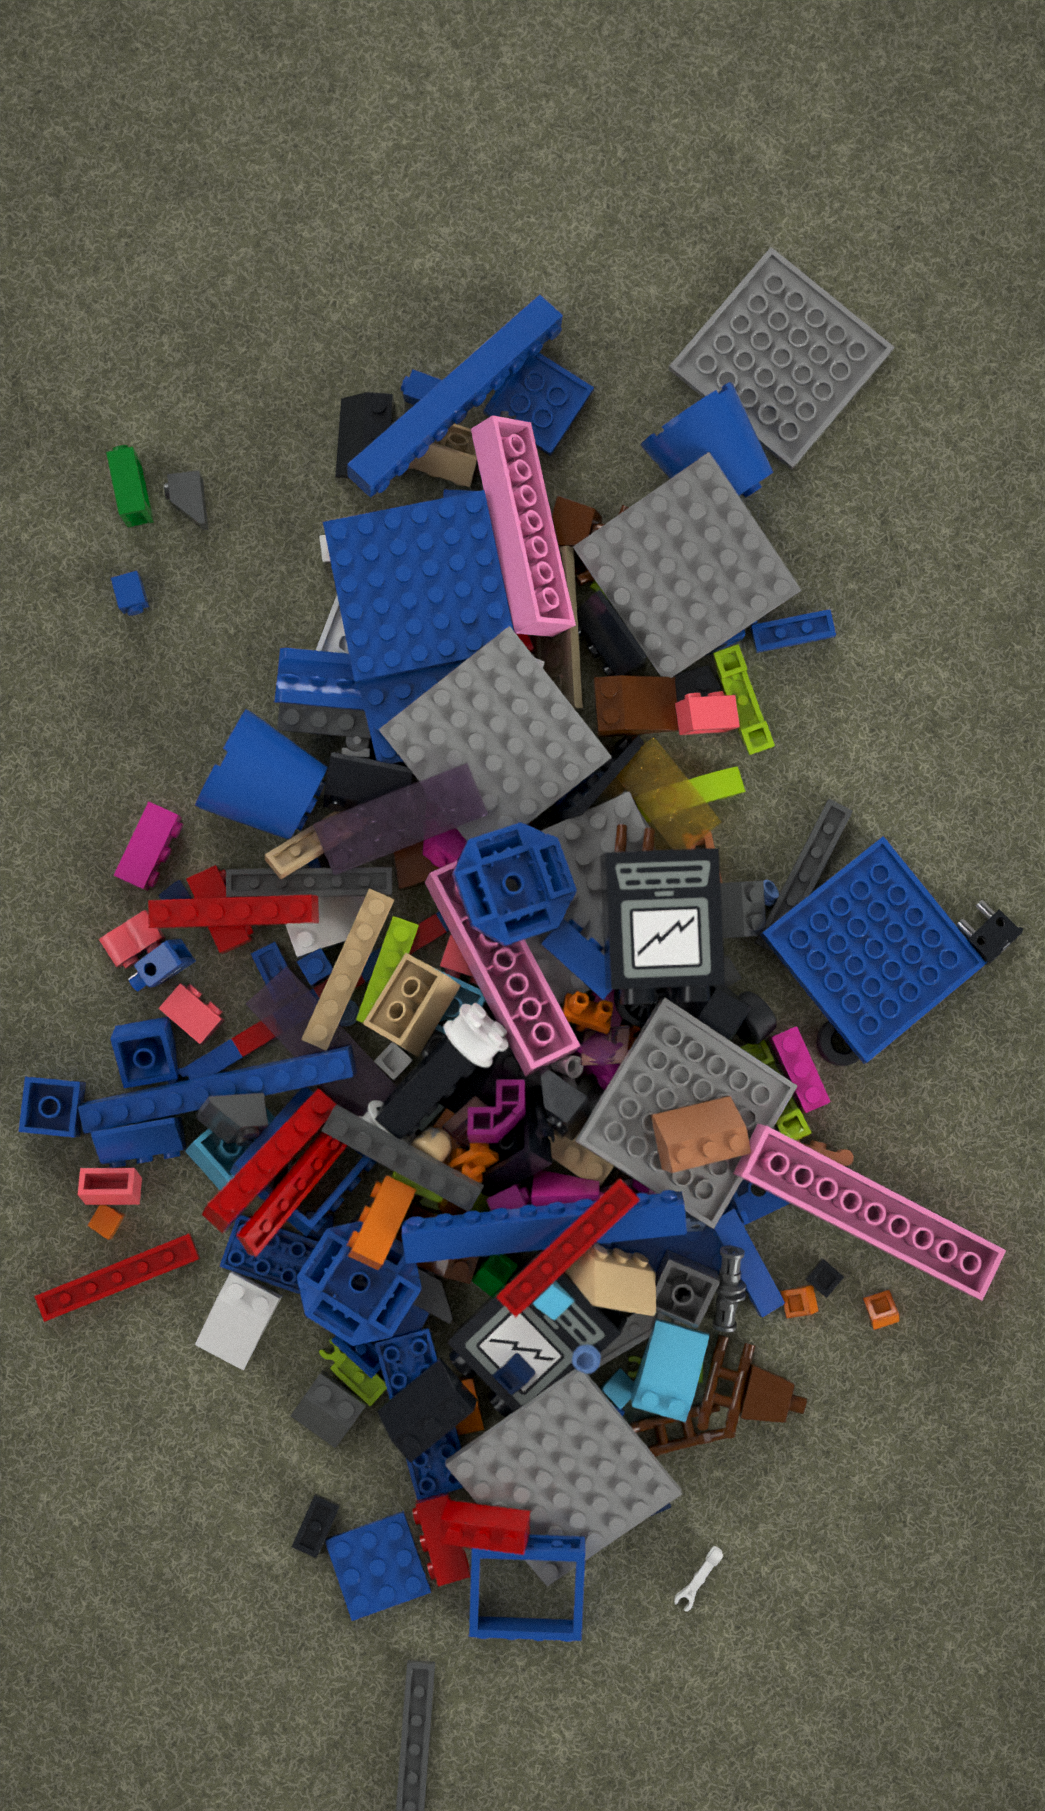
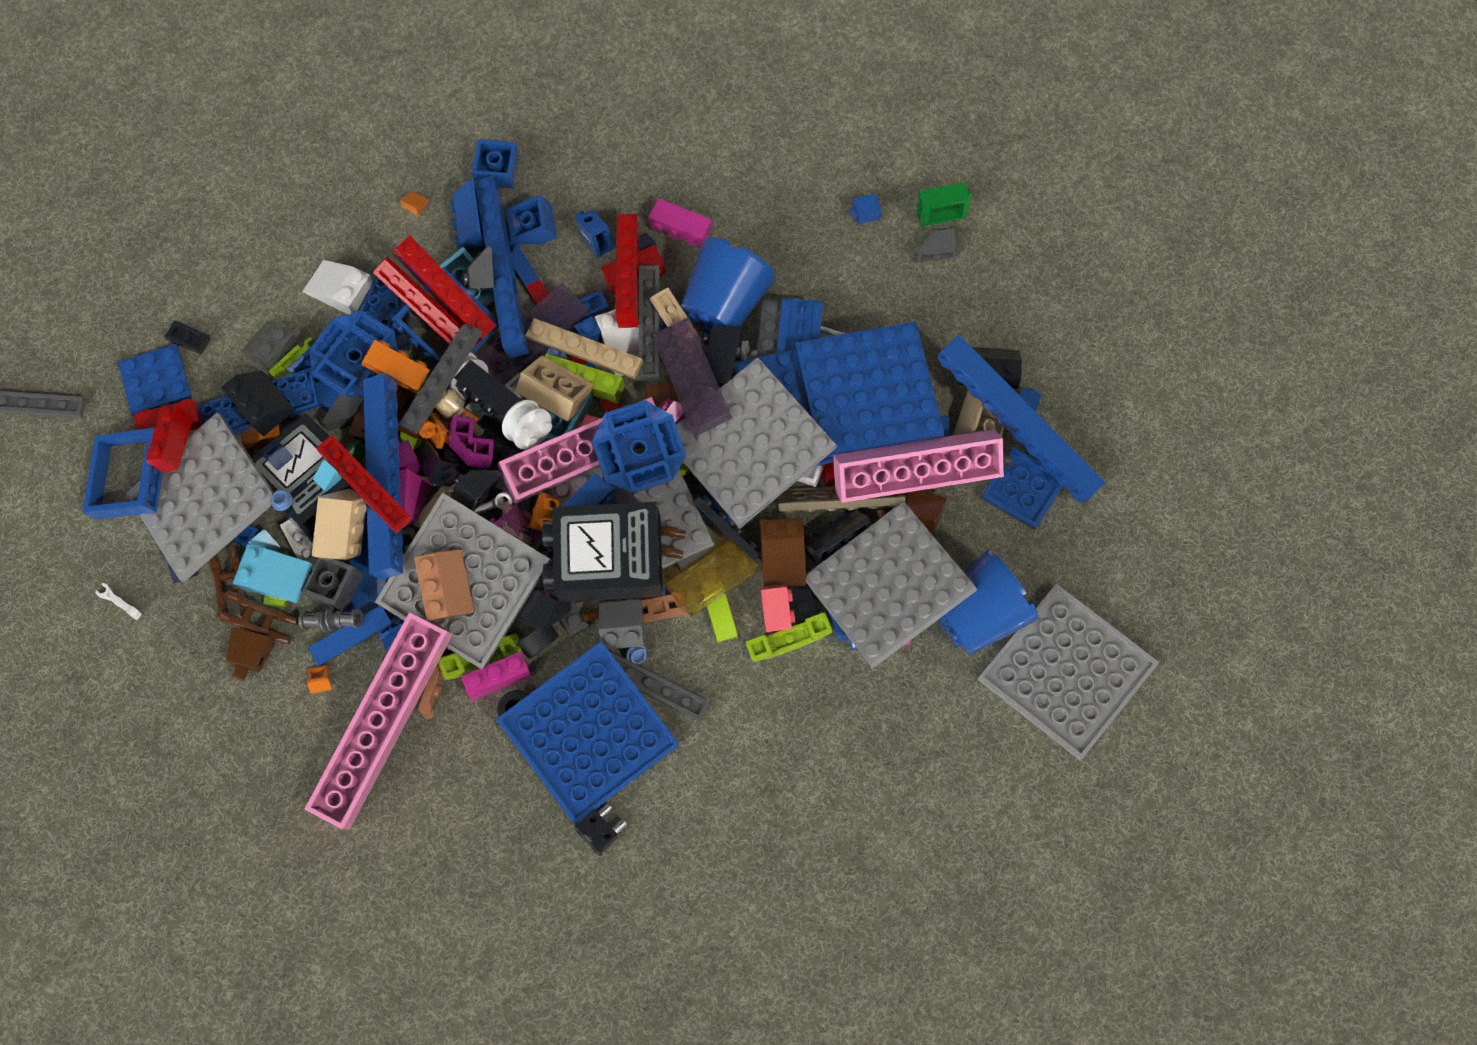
camera: 95 degrees right, 15 degrees down
(109, 1186) = (437, 200): coral brick -> none
(117, 1277) = (373, 207): red plate -> none
(131, 940) = (608, 208): coral brick -> none
(191, 1013) = (558, 252): coral brick -> none
(793, 631) = (845, 678): blue plate -> none
(824, 1278) = (334, 695): black plate -> none
(881, 1309) = (307, 740): orange slope -> none

